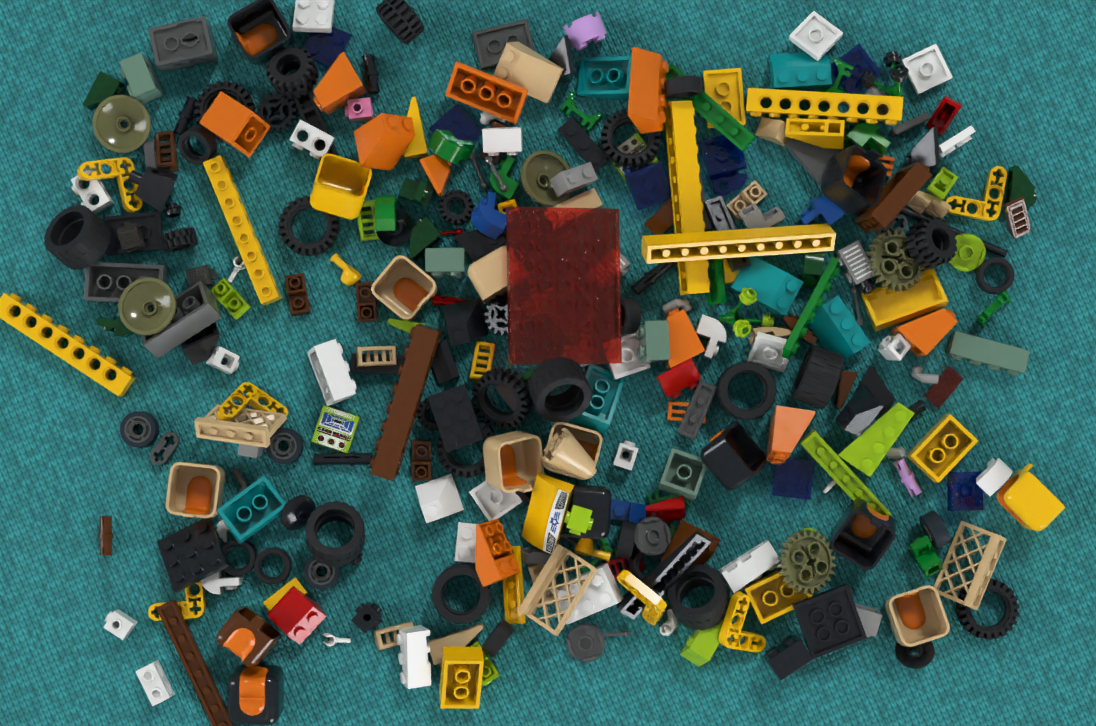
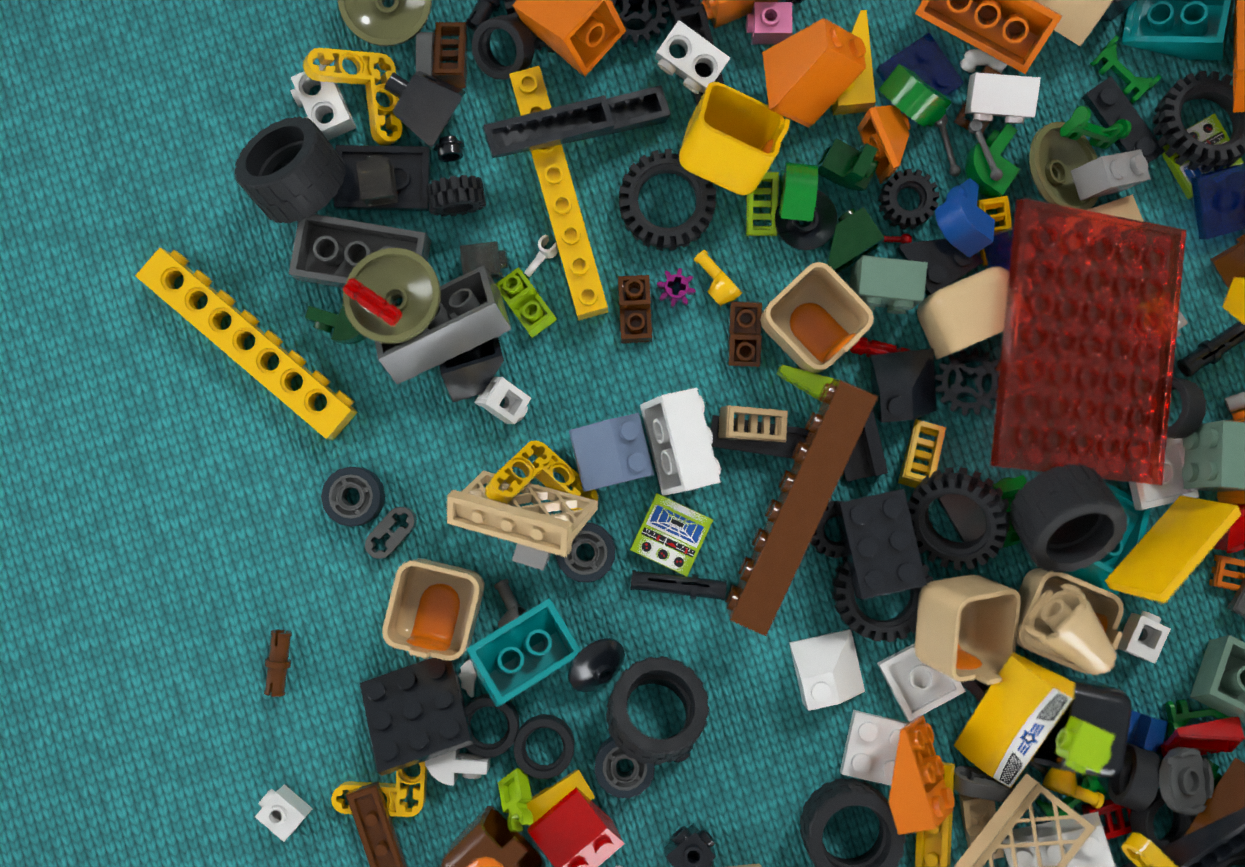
camera: 10 degrees right, 0 degrees up
(136, 311) = (372, 302): none -> red axle
(247, 187) = (577, 122): none -> black slope
(257, 596) = (514, 796): none -> lime plate
(291, 383) = (611, 452): none -> sand blue slope
(317, 275) = (684, 284): none -> magenta gear
(421, 460) = (805, 602): reddish brown slope -> none
(567, 155) = (1099, 136): none -> green piece
(626, 399) = (1173, 548): none -> yellow tile

